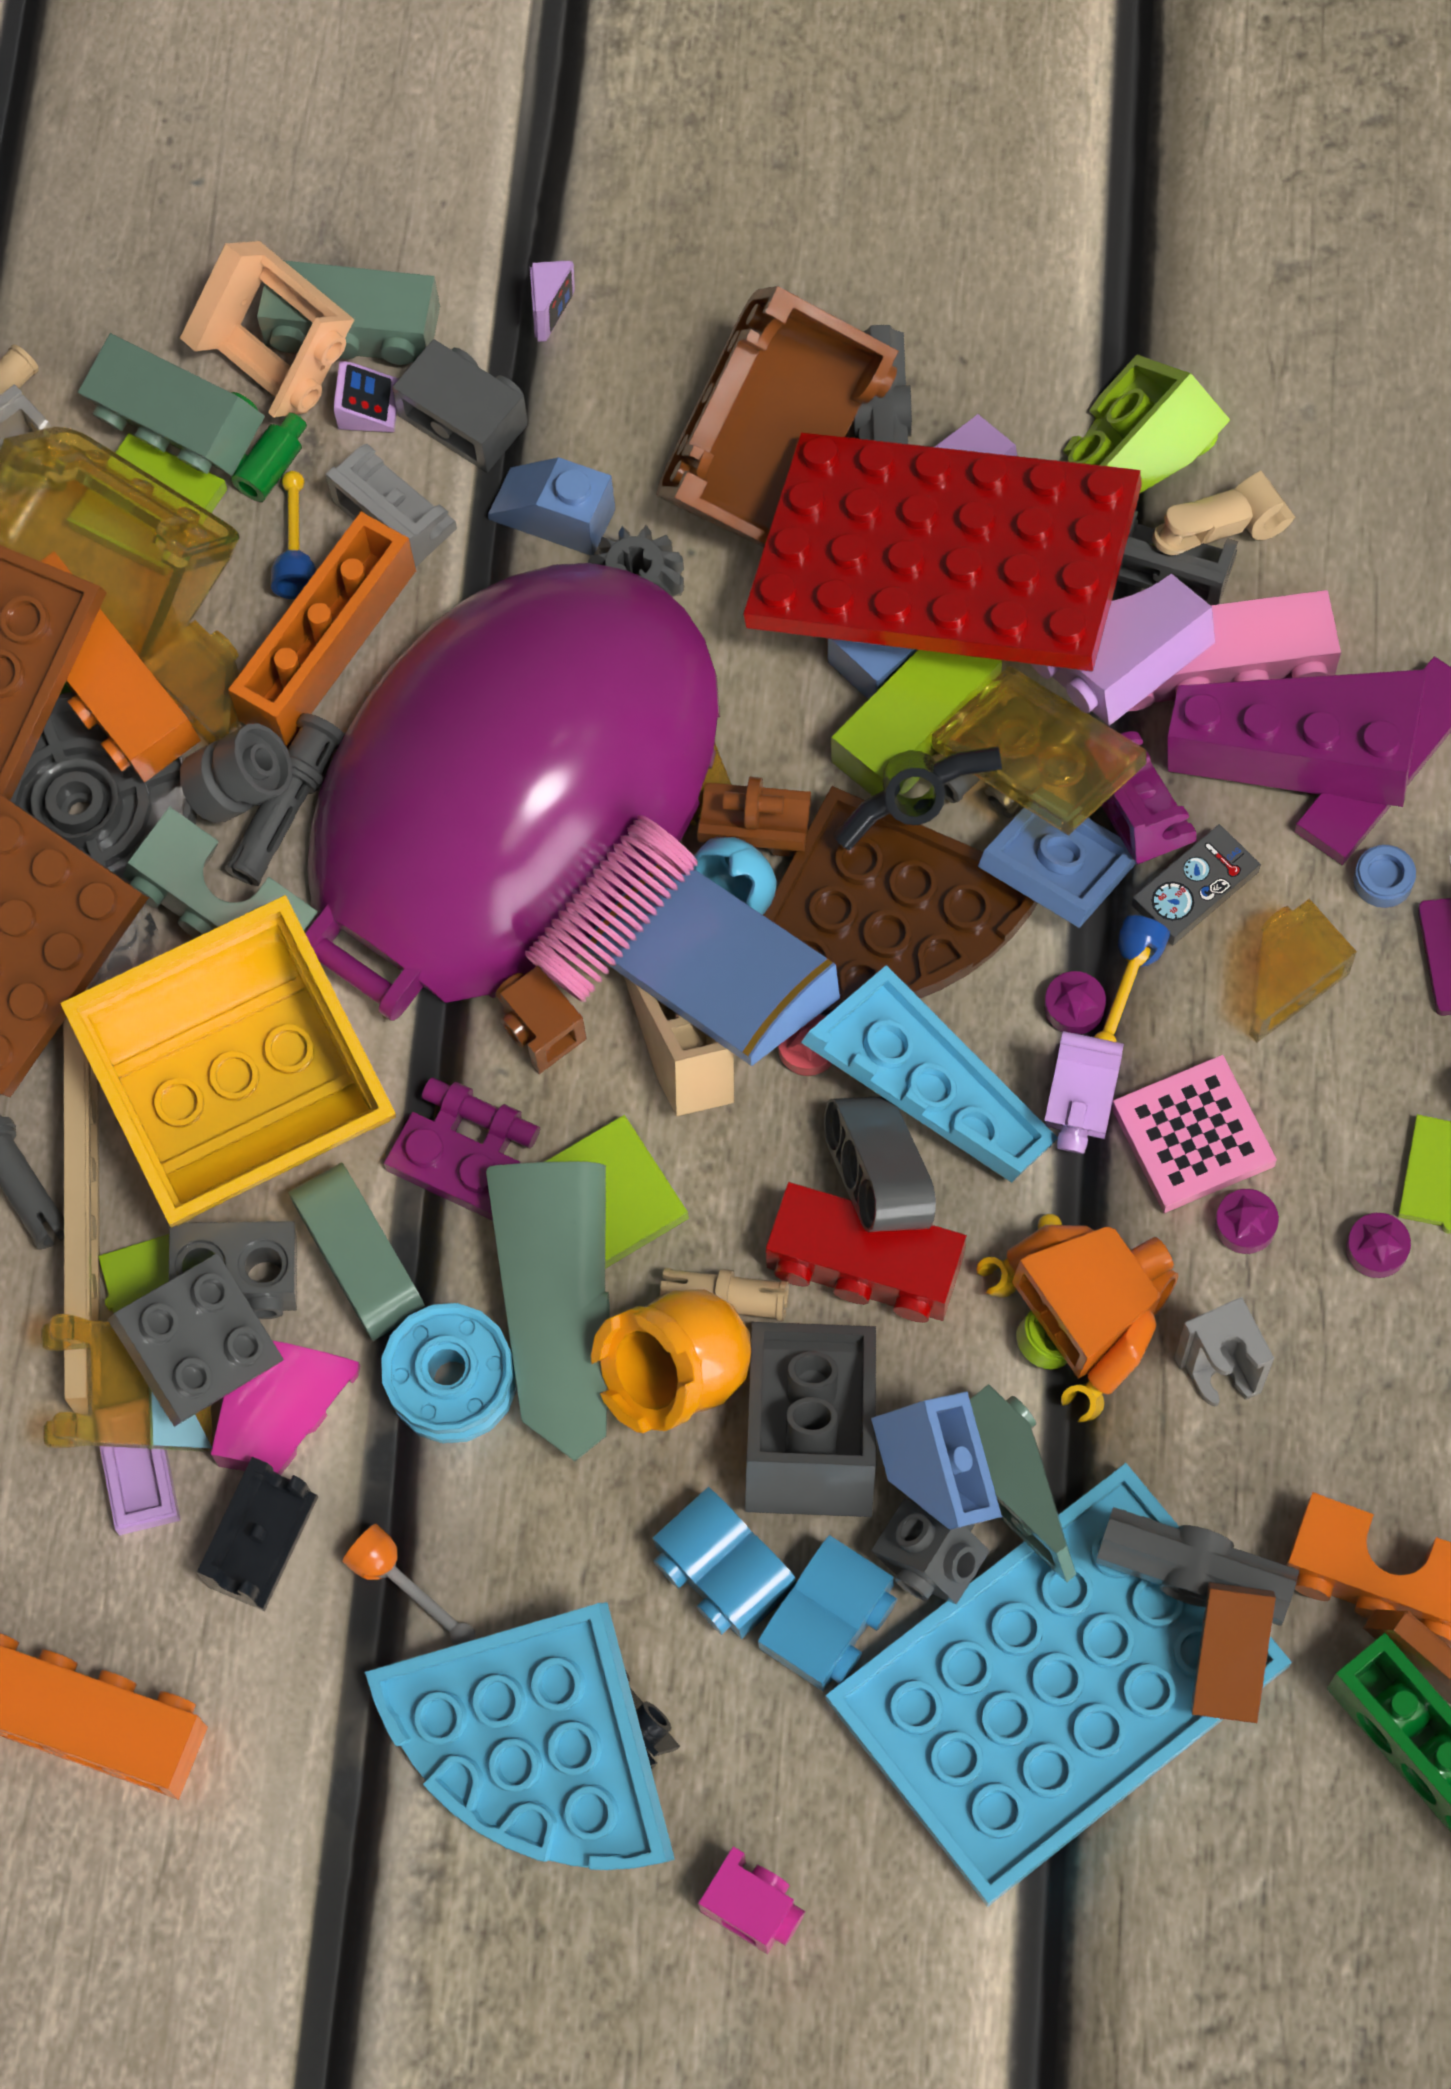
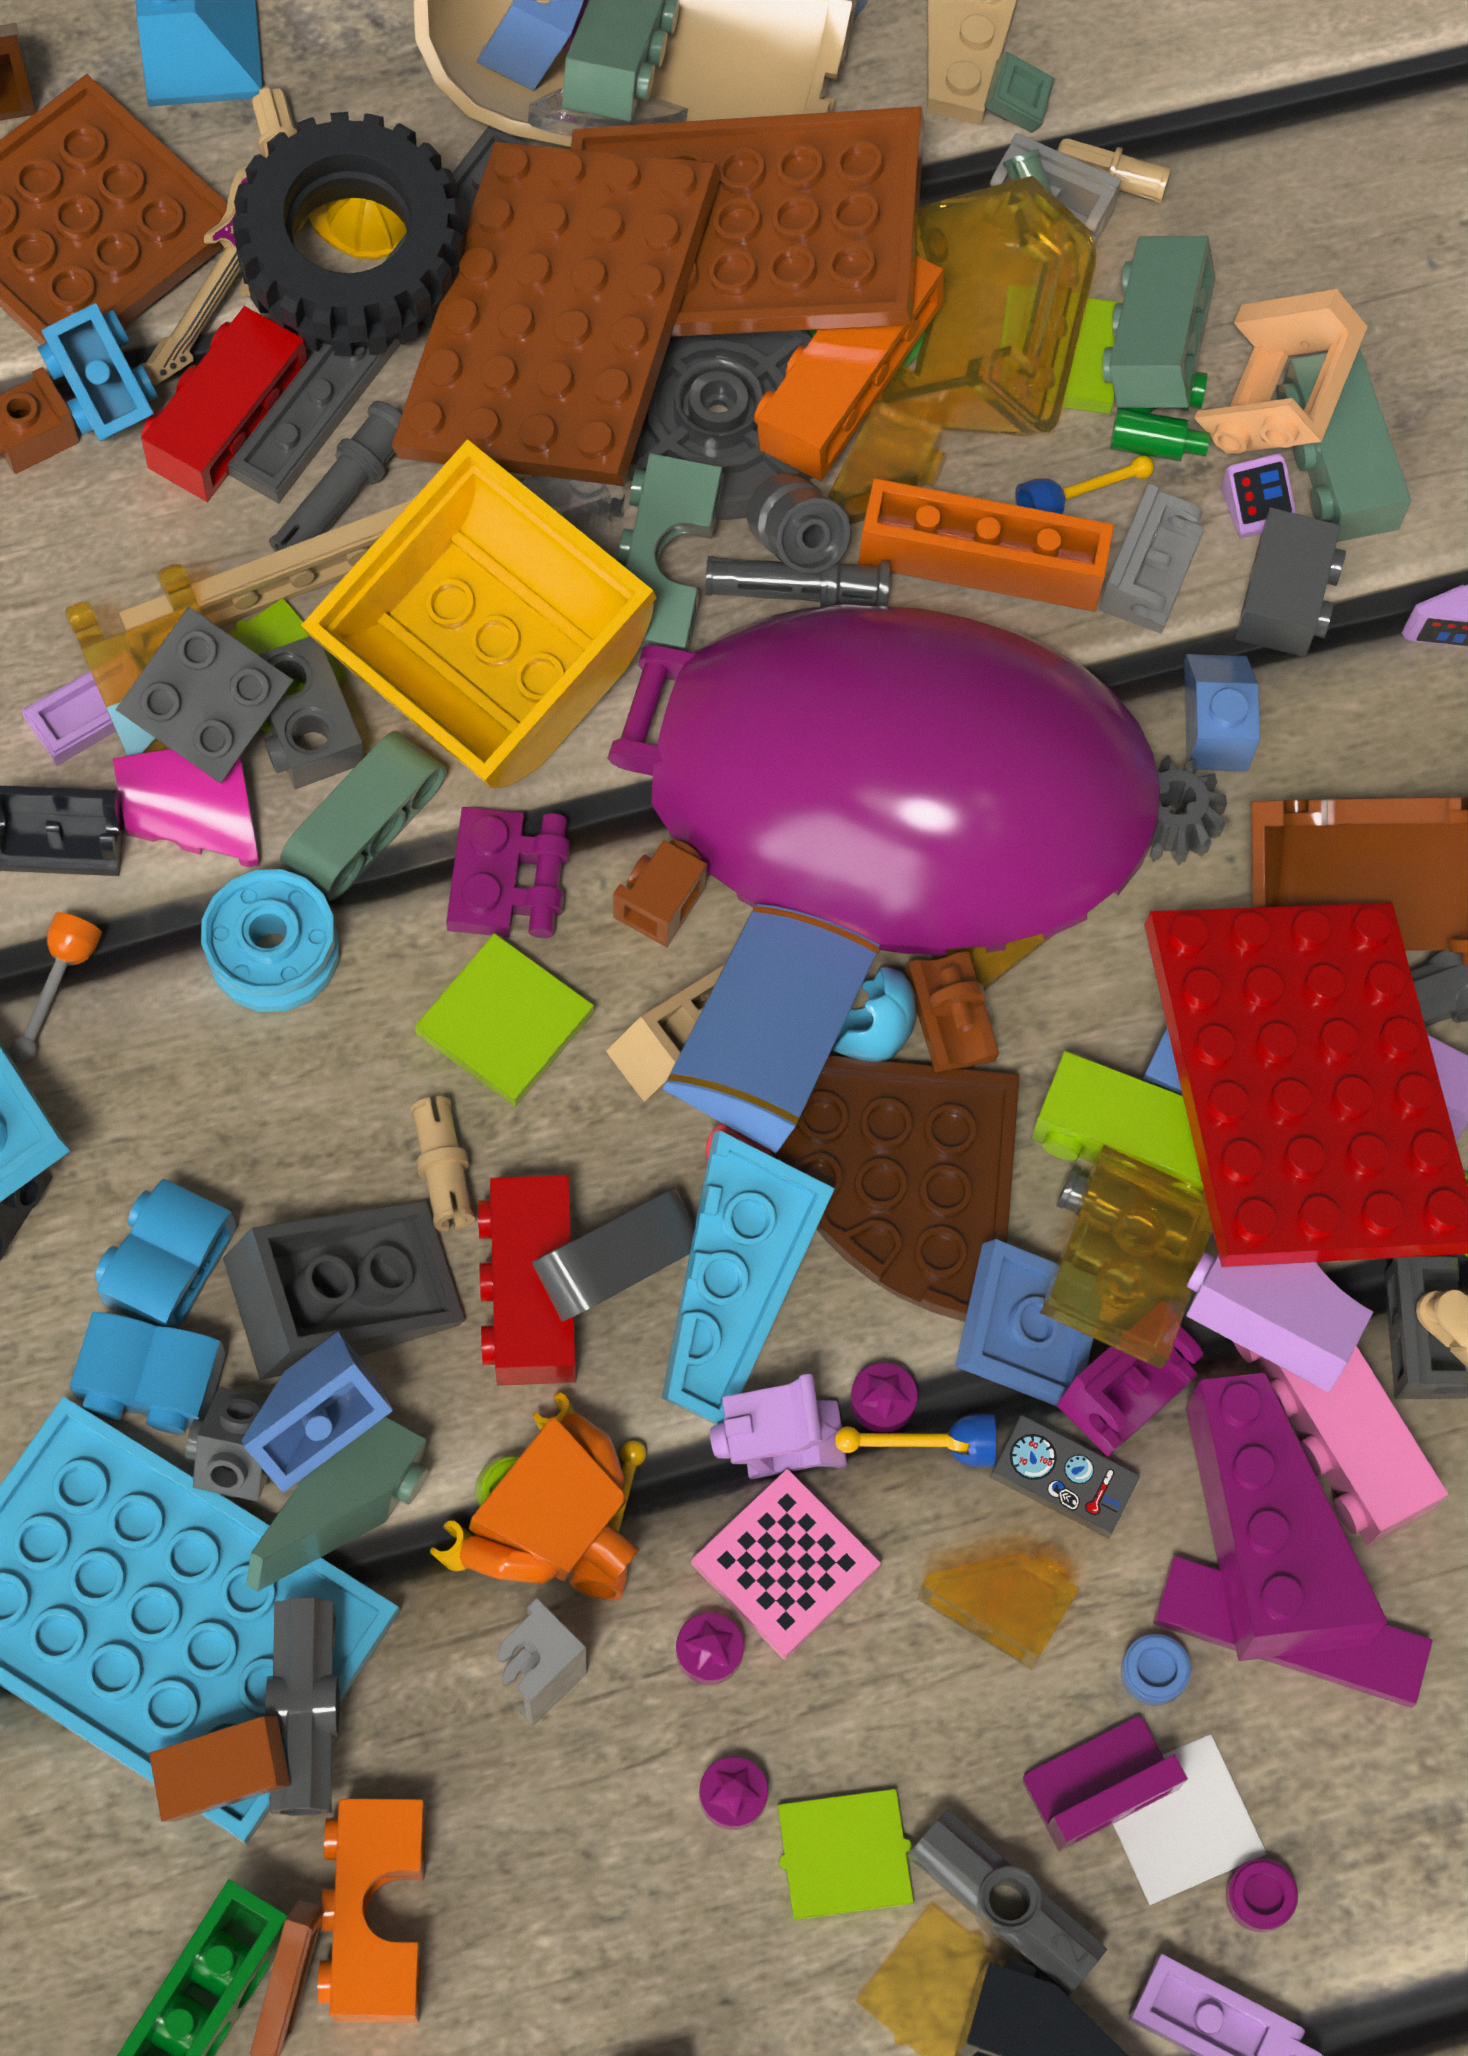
camera: 60 degrees right, 0 degrees up
(555, 1298) = (372, 1006): sand green panel -> none
(665, 852) = (861, 923): bright pink piece -> none
(671, 1359) = (350, 1135): light orange tile -> none
(920, 809) = (1012, 1147): black piece -> none

